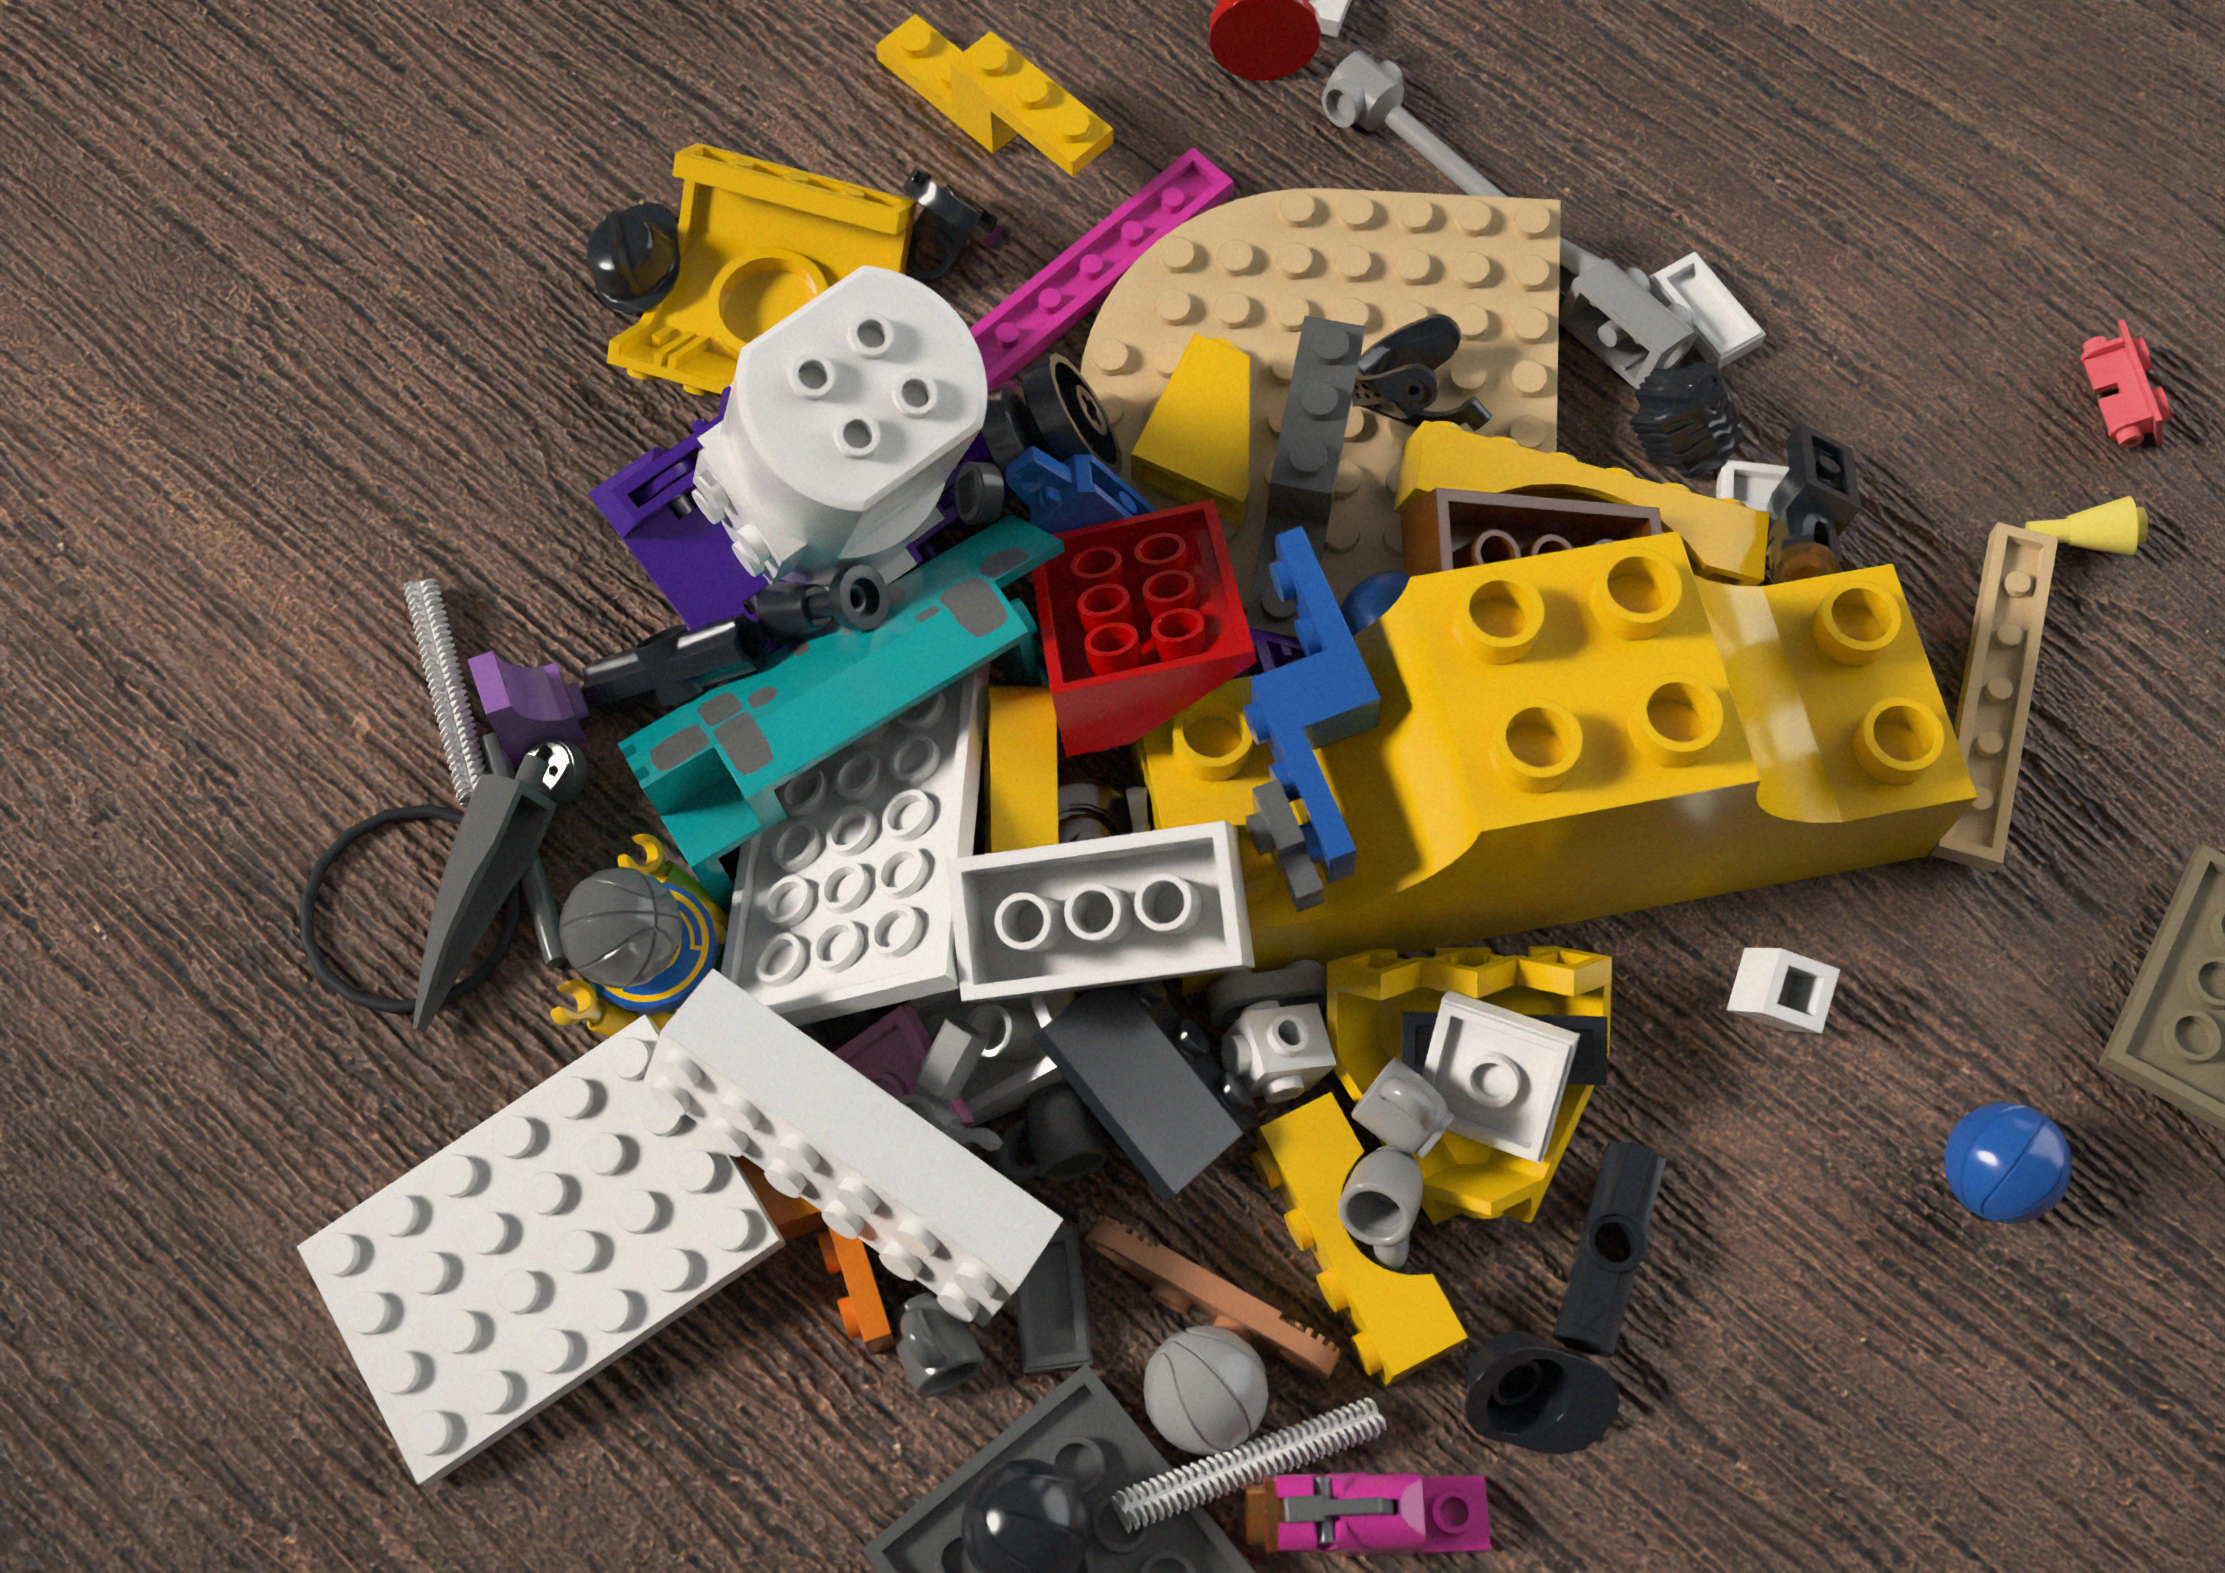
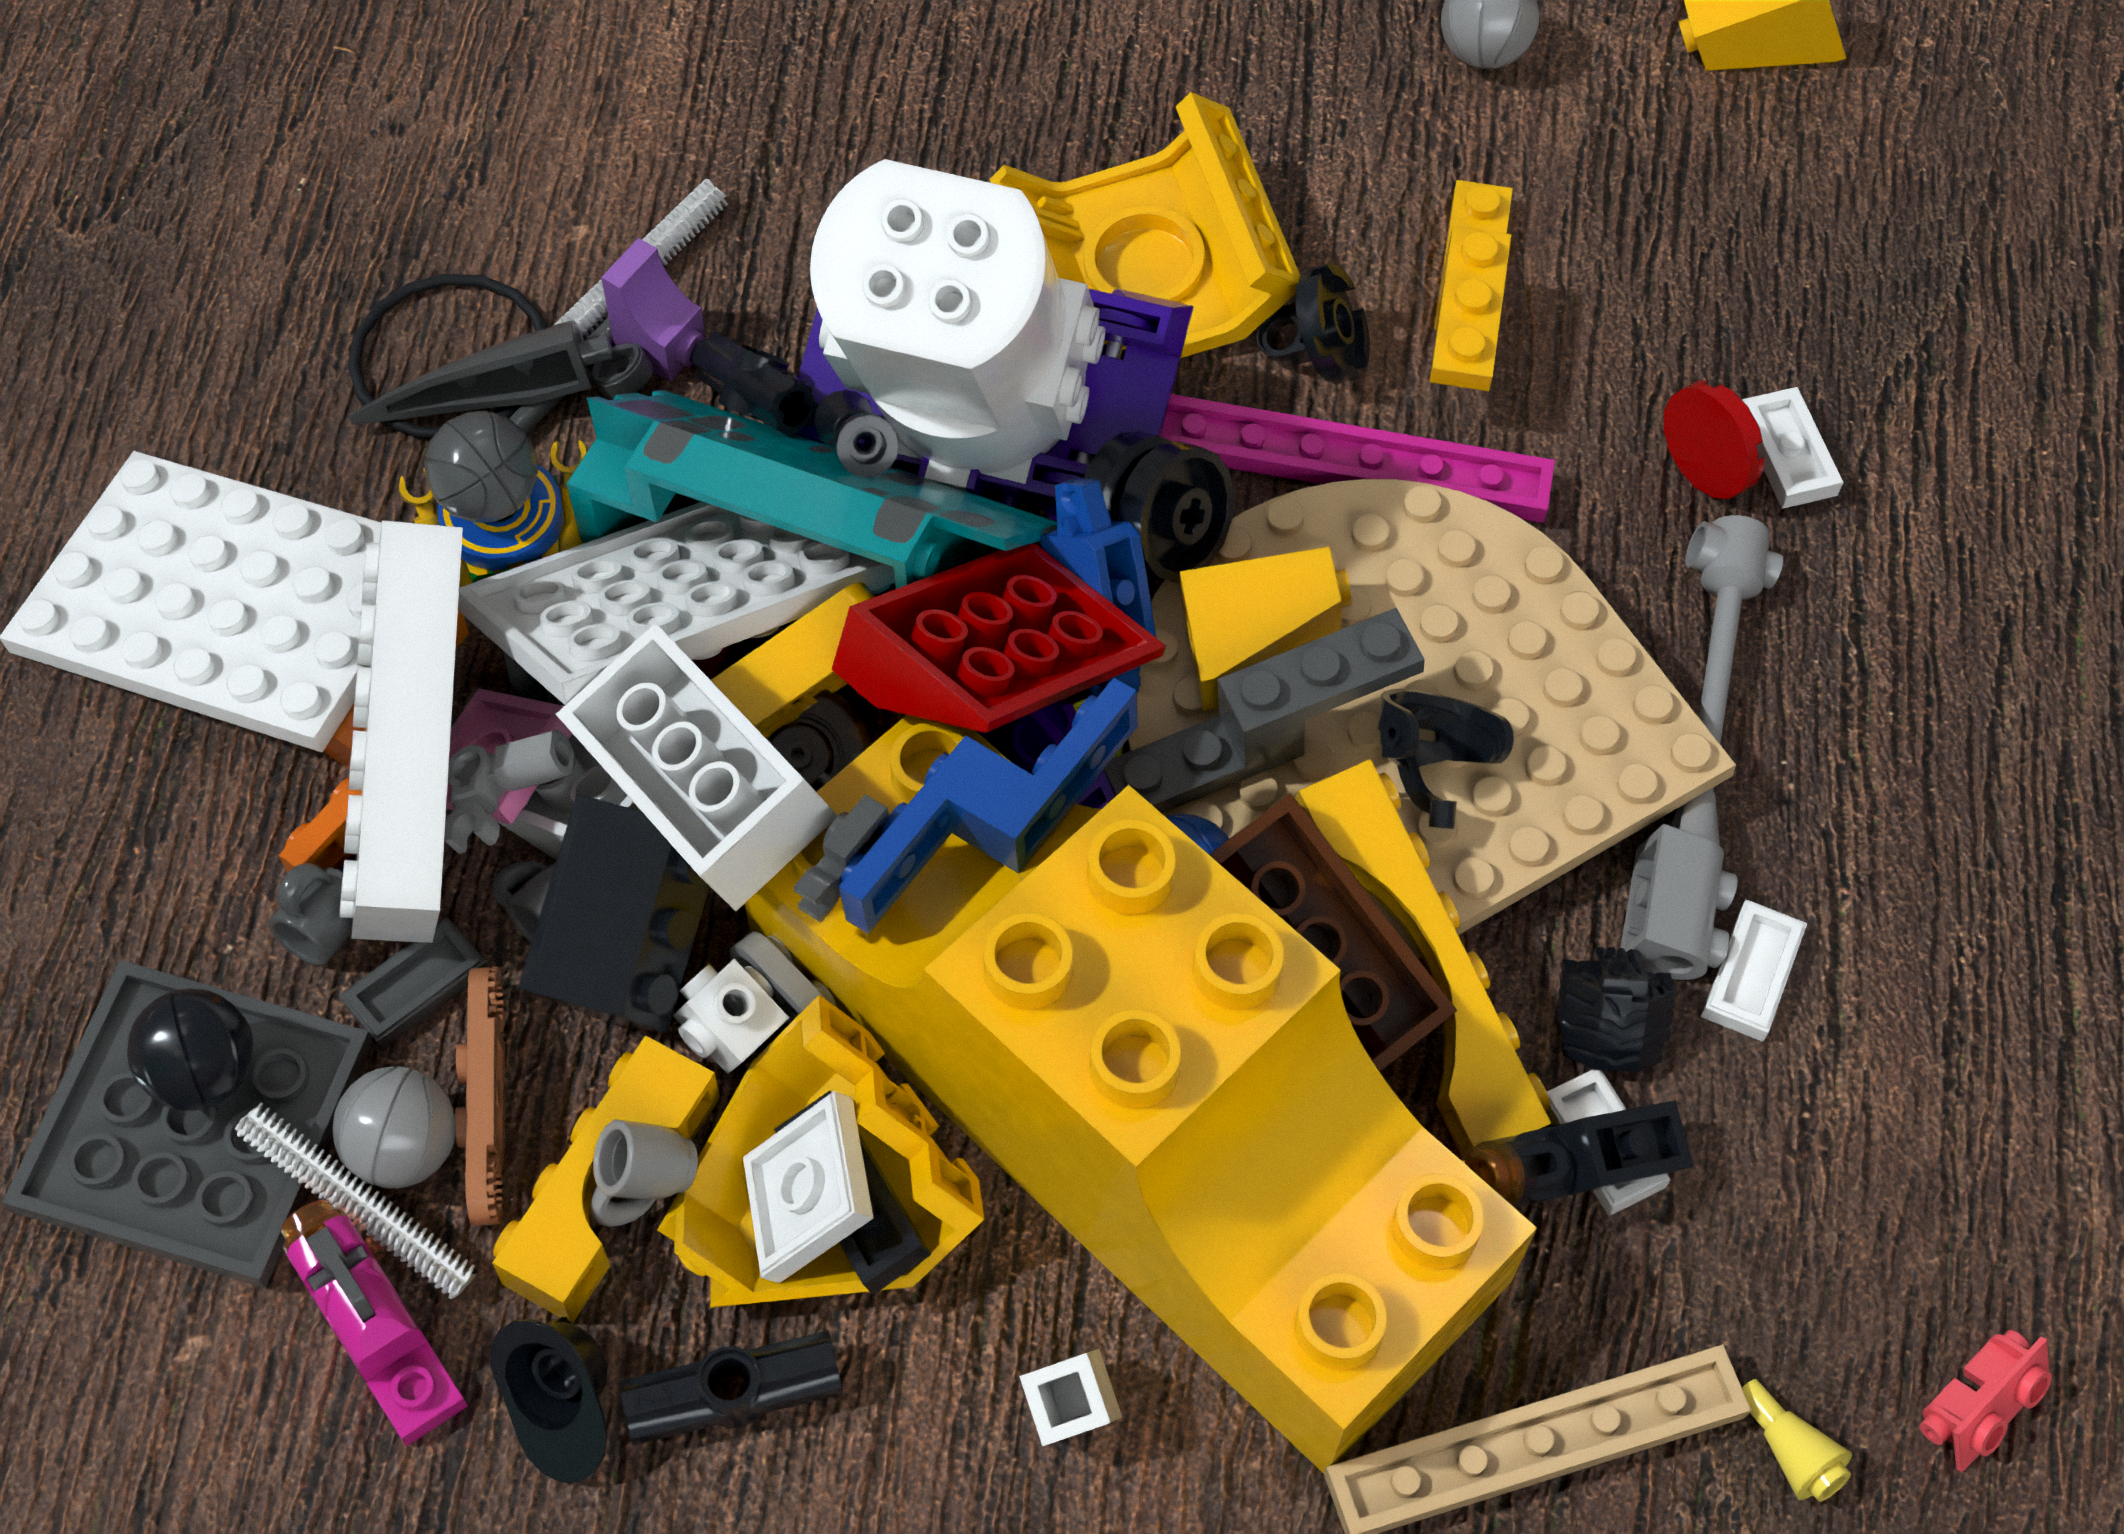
camera: 55 degrees right, 5 degrees down
(635, 257) = (1109, 139): black piece -> none
(979, 493) = (1043, 496): dark grey tile -> none
(1403, 1110) = (729, 1132): light grey piece -> none

